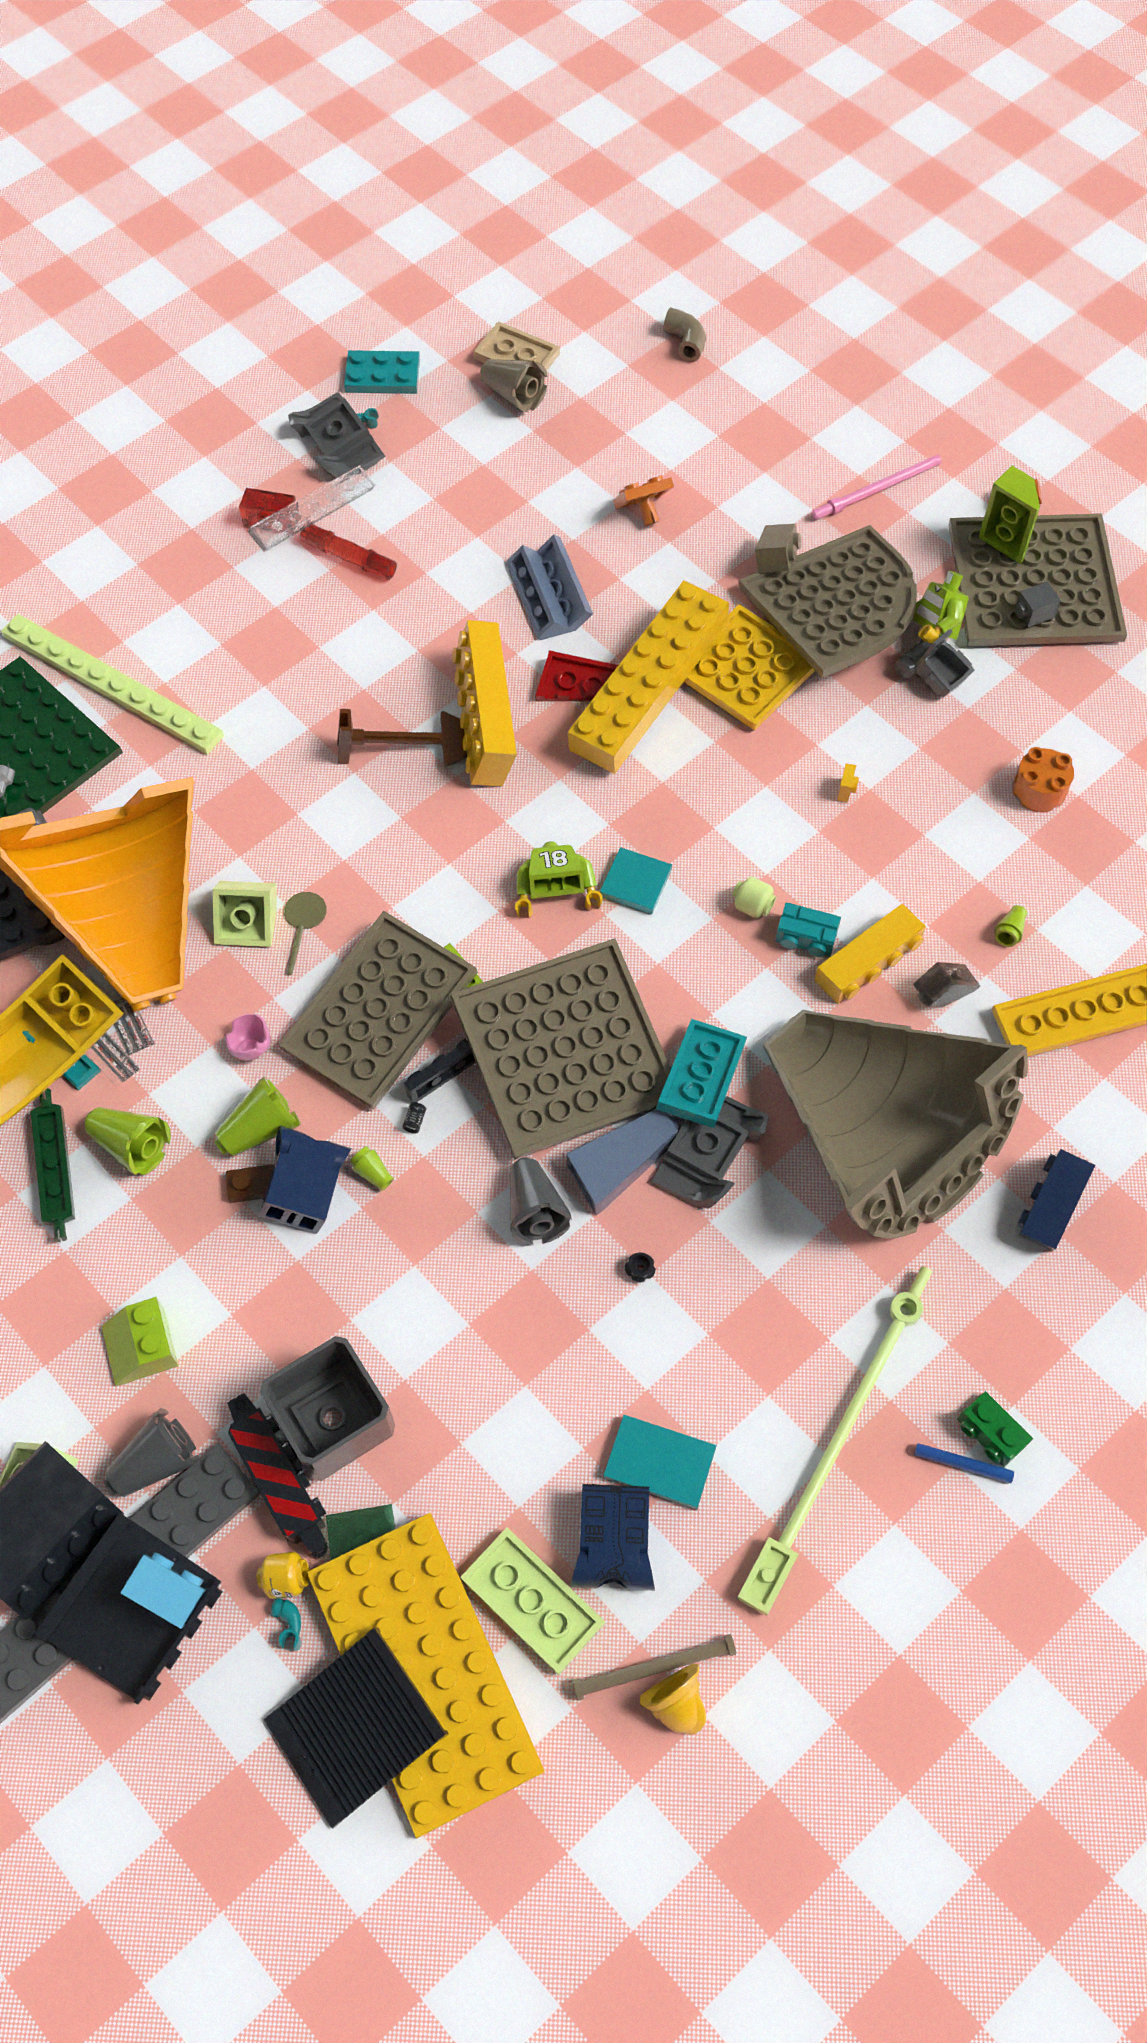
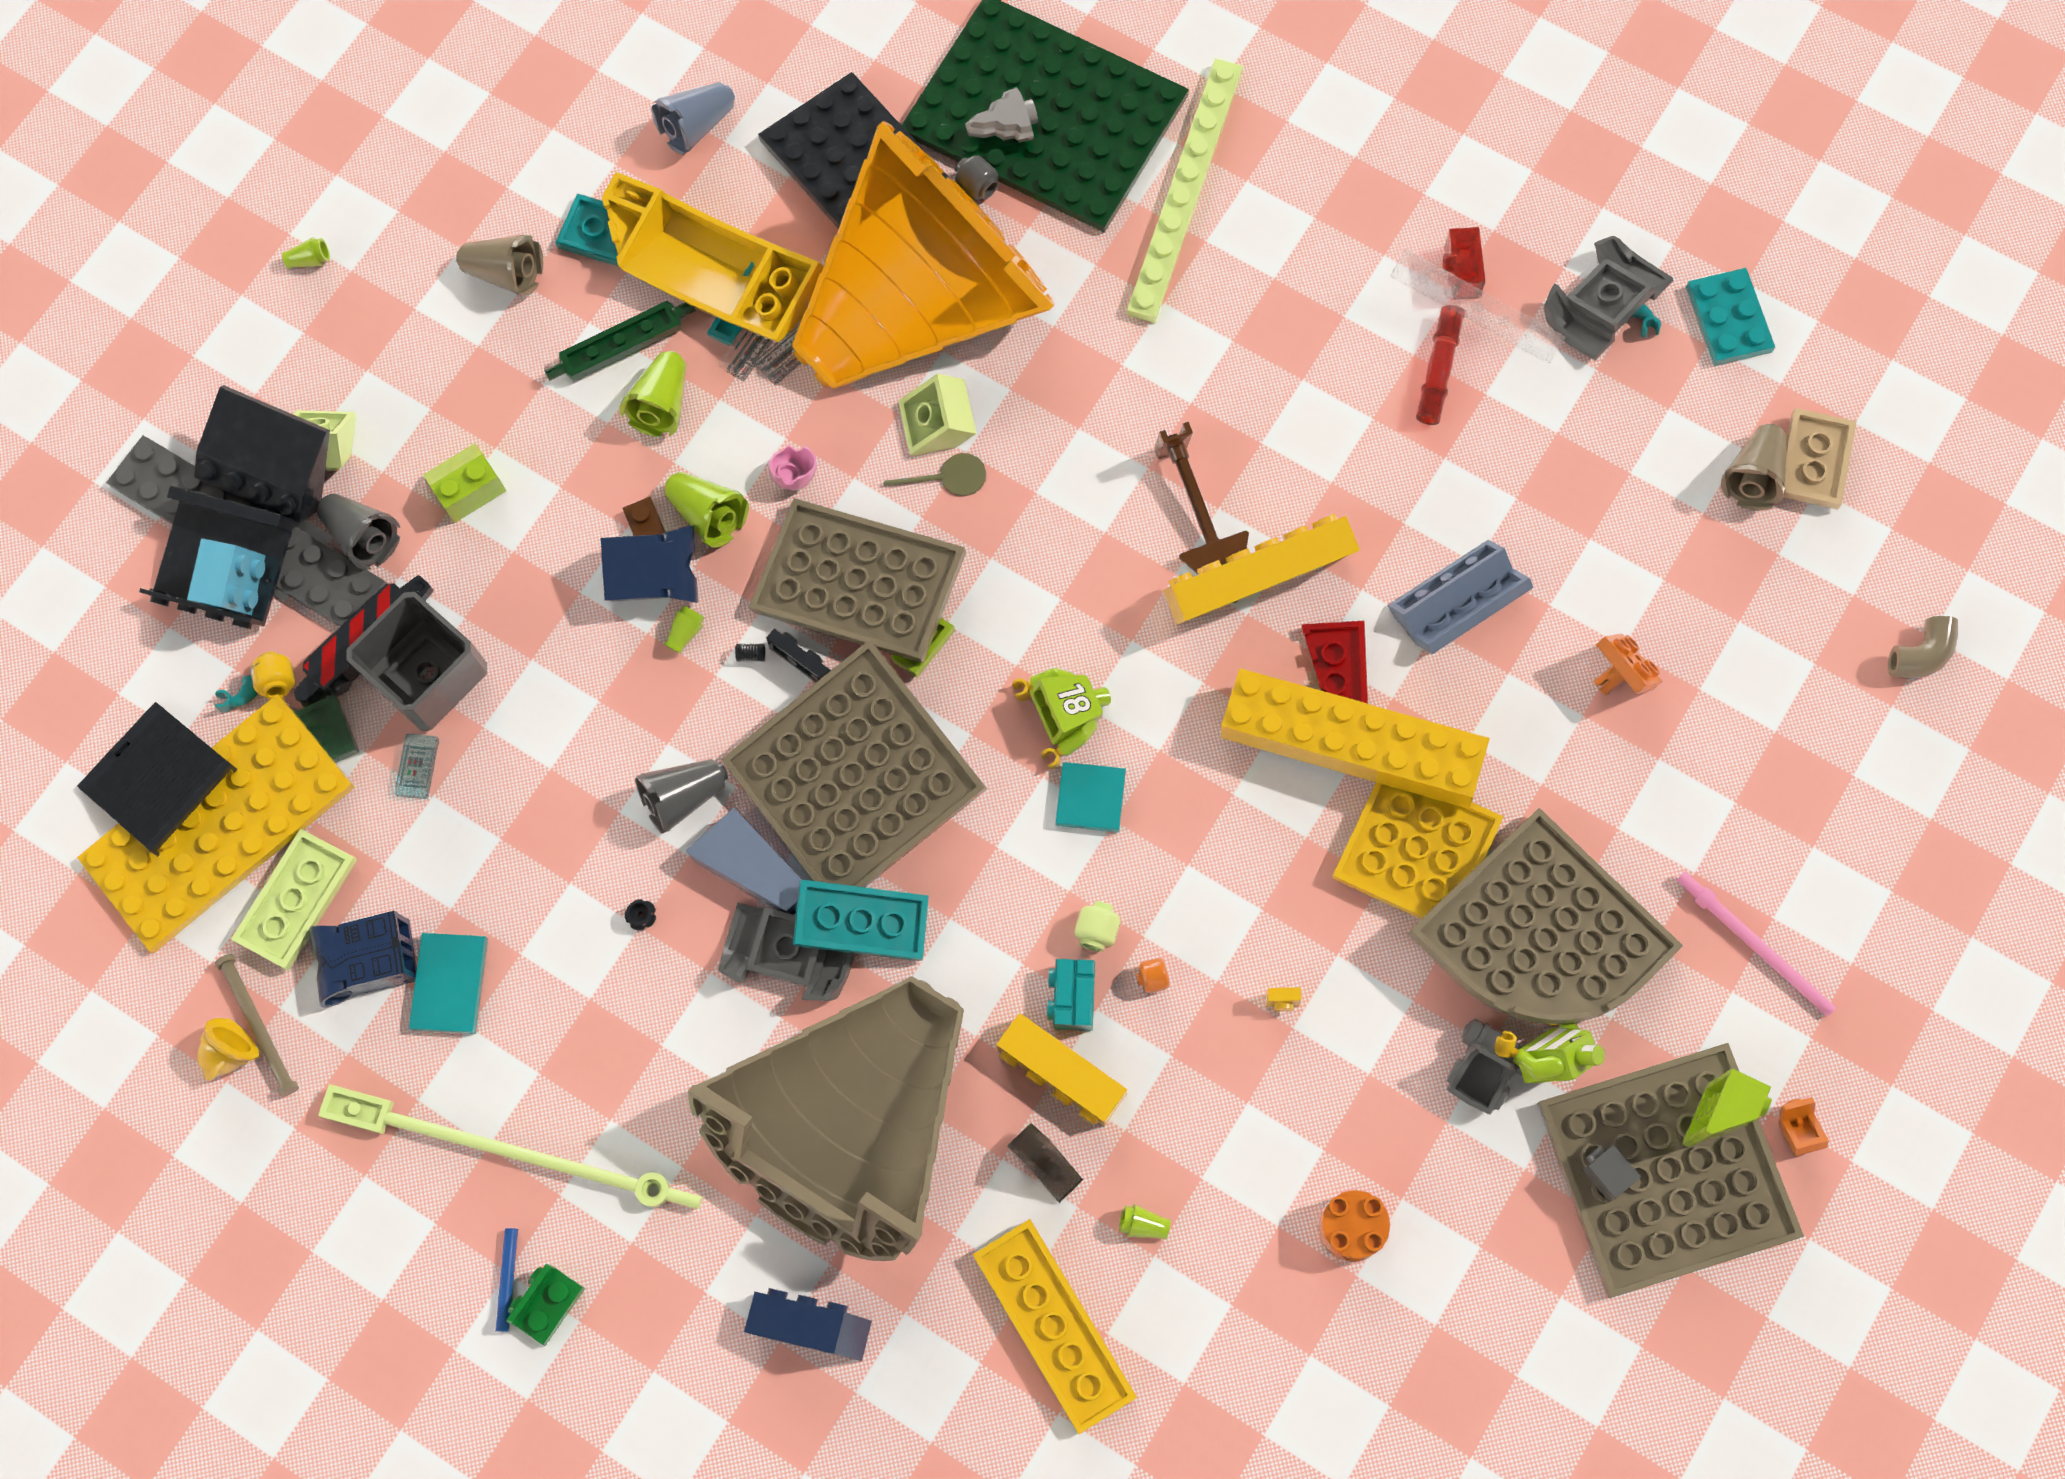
camera: 80 degrees right, 10 degrees up
(426, 1451) = (416, 766): none -> clear light blue tile
(777, 547) = (1597, 839): dark tan brick -> none
(805, 868) = (1153, 975): none -> orange piece

